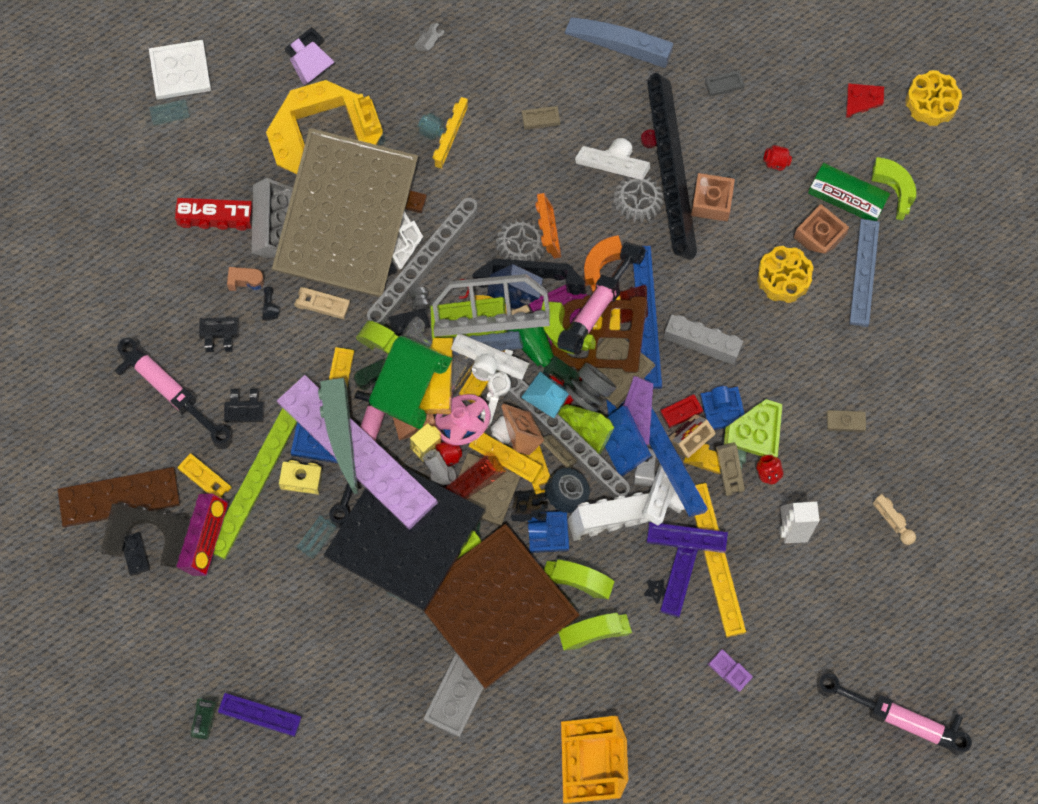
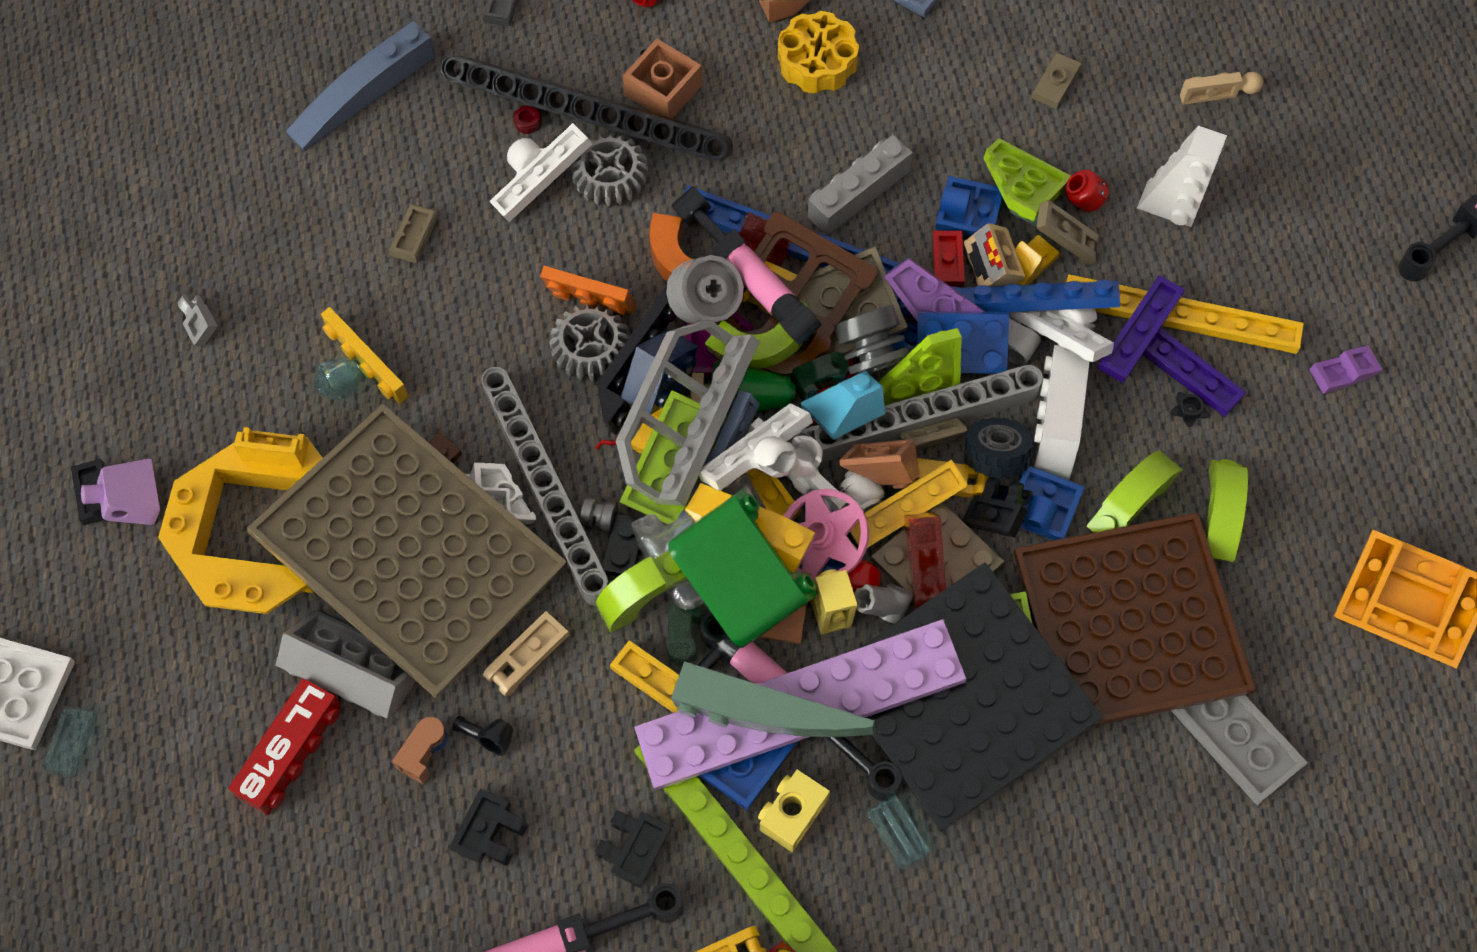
camera: 60 degrees left, 5 degrees down
(567, 273) = (705, 289): none -> light grey wheel

